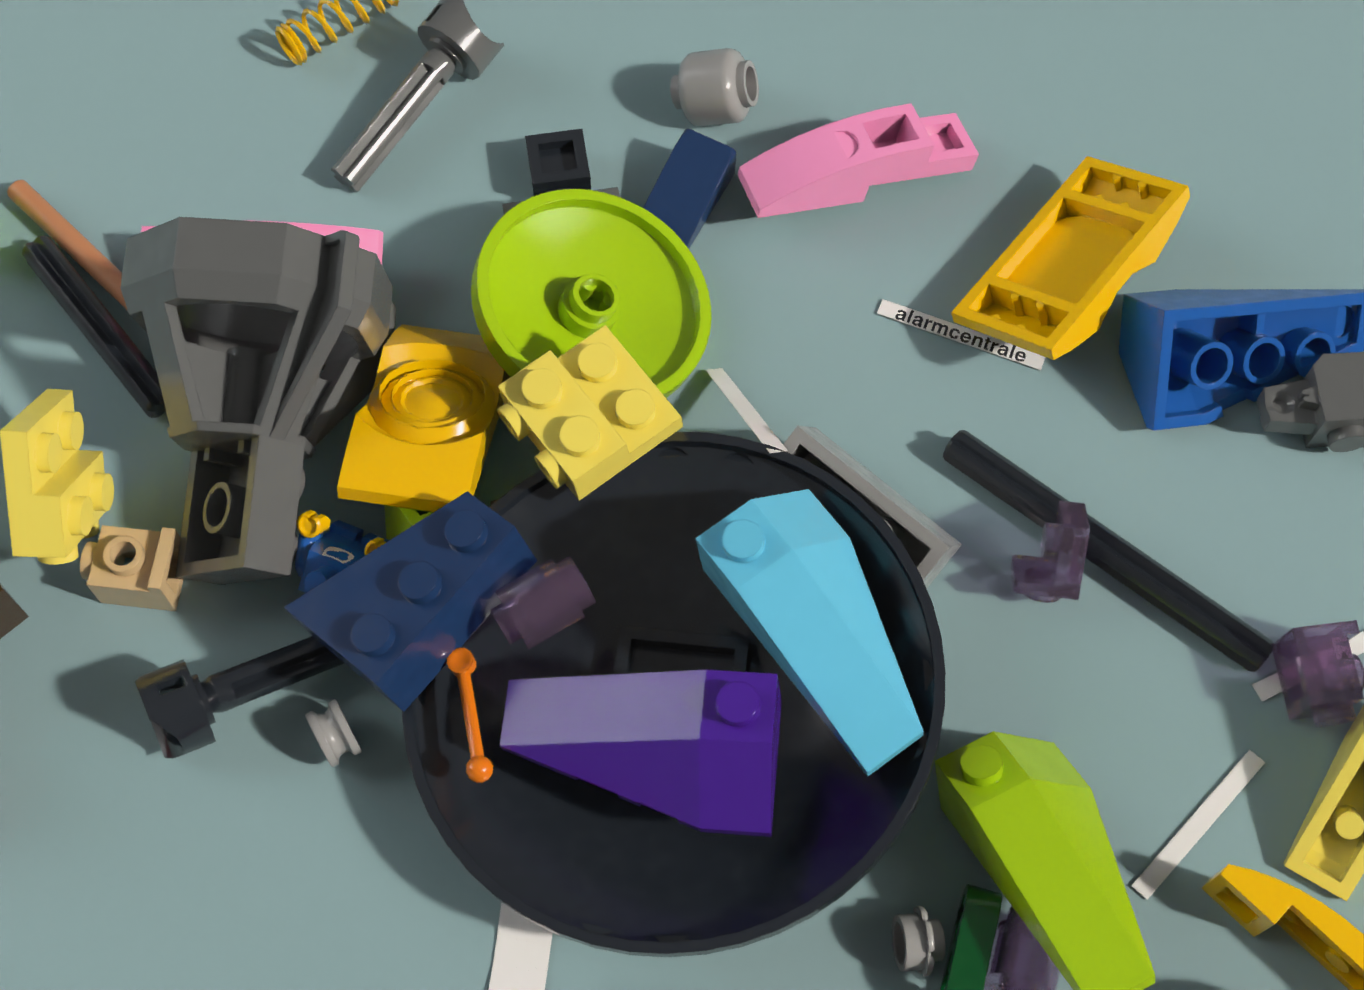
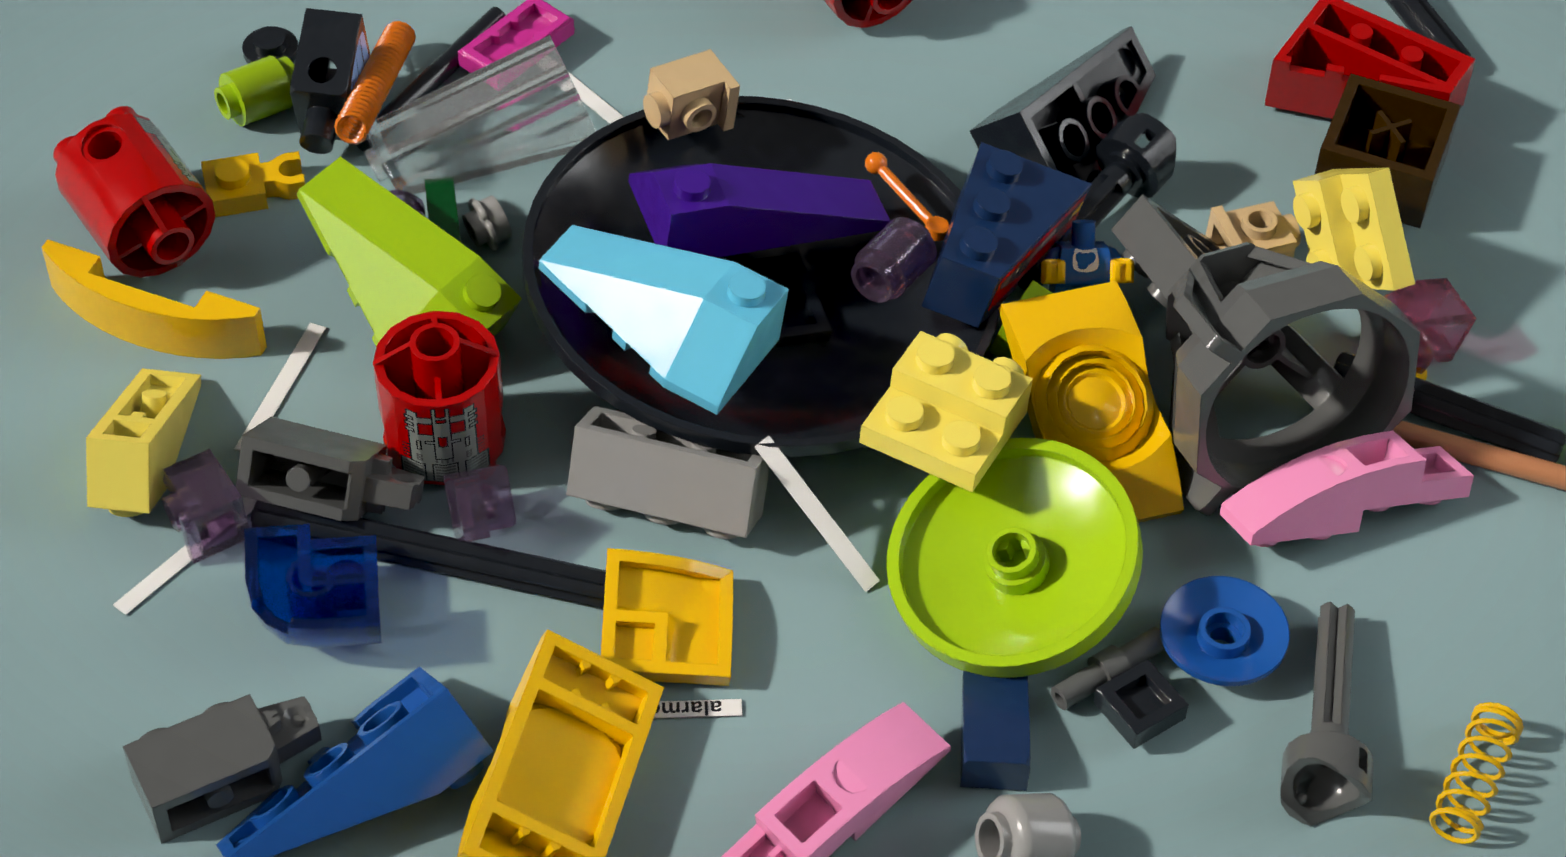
camera: 155 degrees right, 15 degrees down
(34, 374) = (1438, 315): none -> clear pink piece
(239, 800) = (1073, 108): none -> black wedge
(451, 168) = (1229, 612): none -> blue dish
(656, 912) = (691, 95): none -> tan brick
(915, 385) = (668, 617): none -> yellow plate
(1066, 657) = (440, 395): none -> red cylinder
(1195, 650) = (322, 472): none -> dark grey hinge
(1237, 517) = (313, 588): none -> clear blue brick

